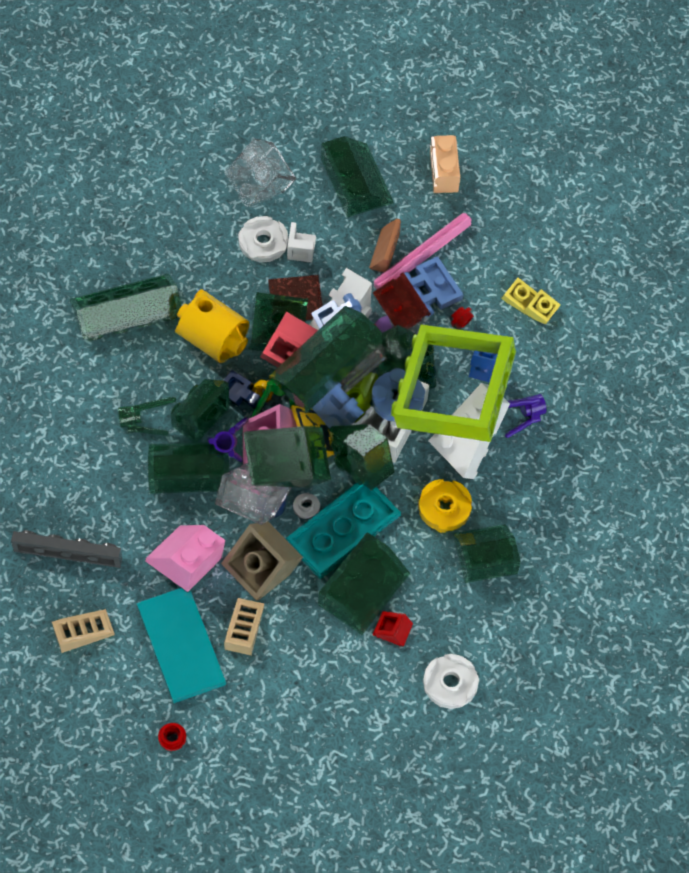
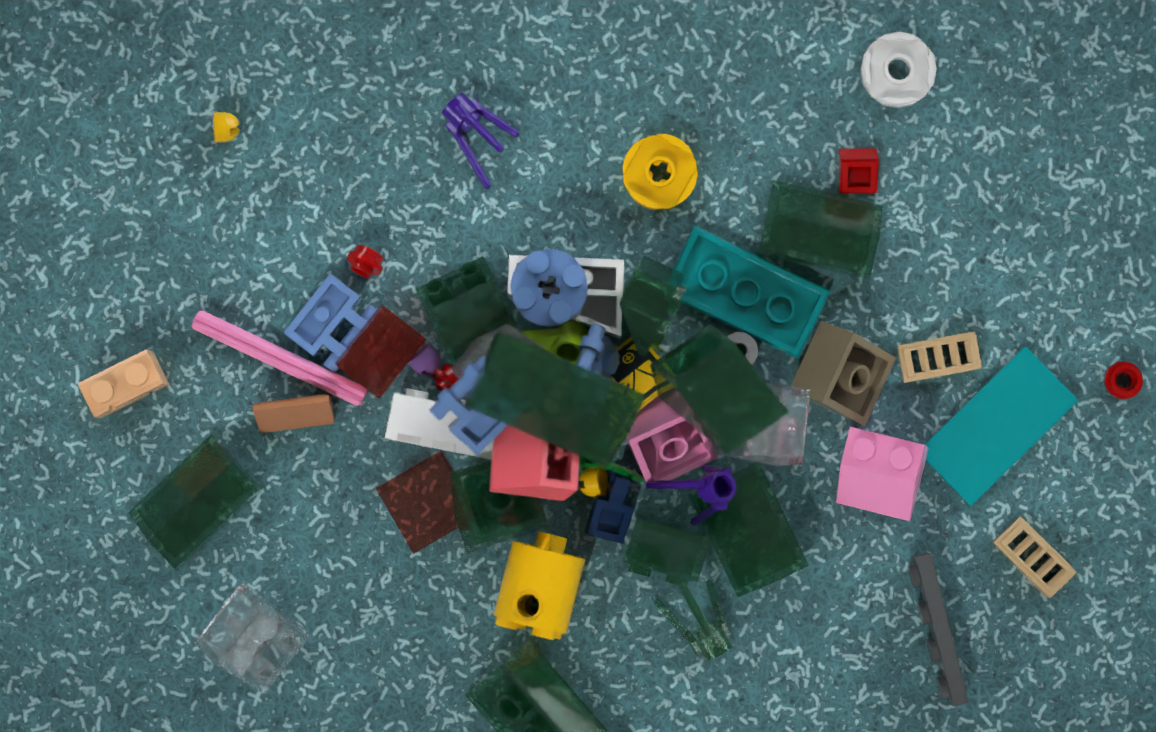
camera: 115 degrees left, 25 degrees up
(263, 251) = (331, 596): white tile -> none
(300, 245) = (341, 530): white panel -> none
(449, 425) = (513, 146): lime window -> none
(466, 453) = (552, 175): white wedge -> none
(482, 365) = (419, 201): blue slope -> none
(487, 553) = (703, 92): clear green slope -> none
(535, 305) = (294, 179): light yellow slope -> none
(580, 275) = (225, 127): none -> yellow hinge

